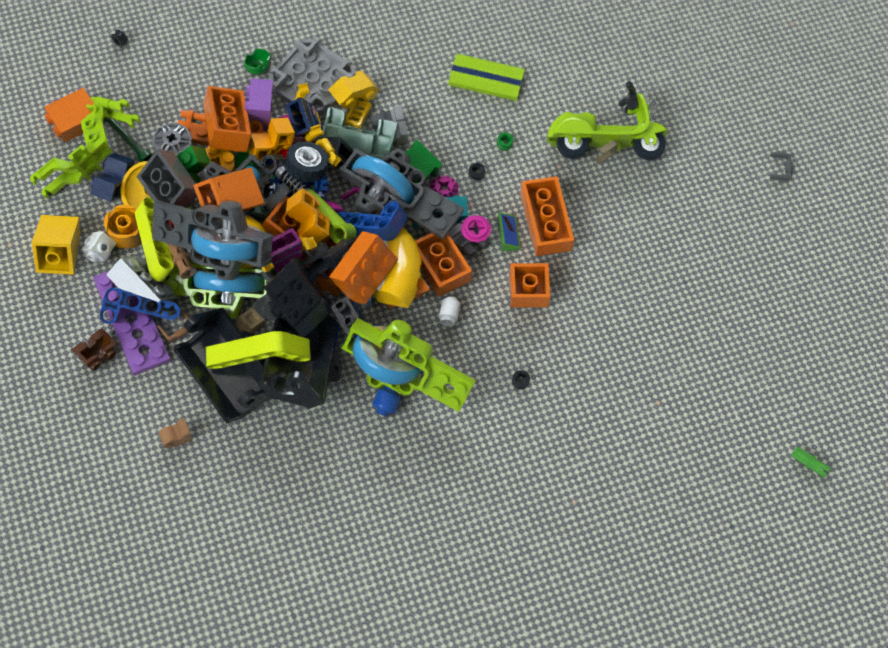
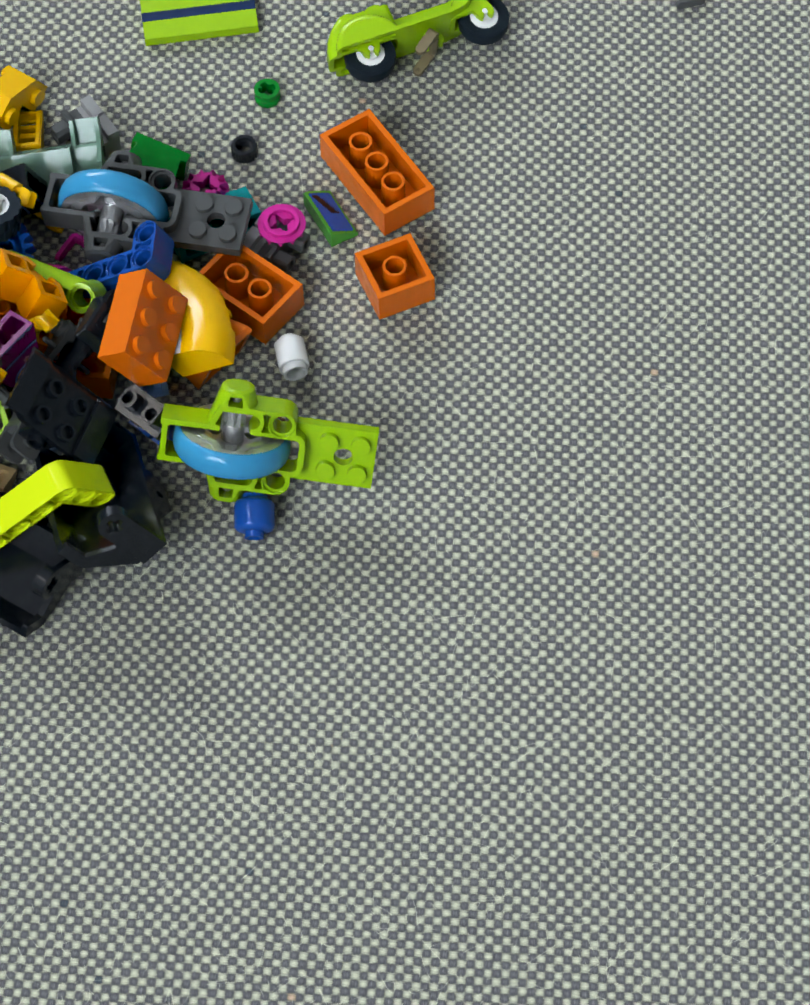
camera: 15 degrees left, 5 degrees down
(520, 373) = (440, 422): black bush -> none

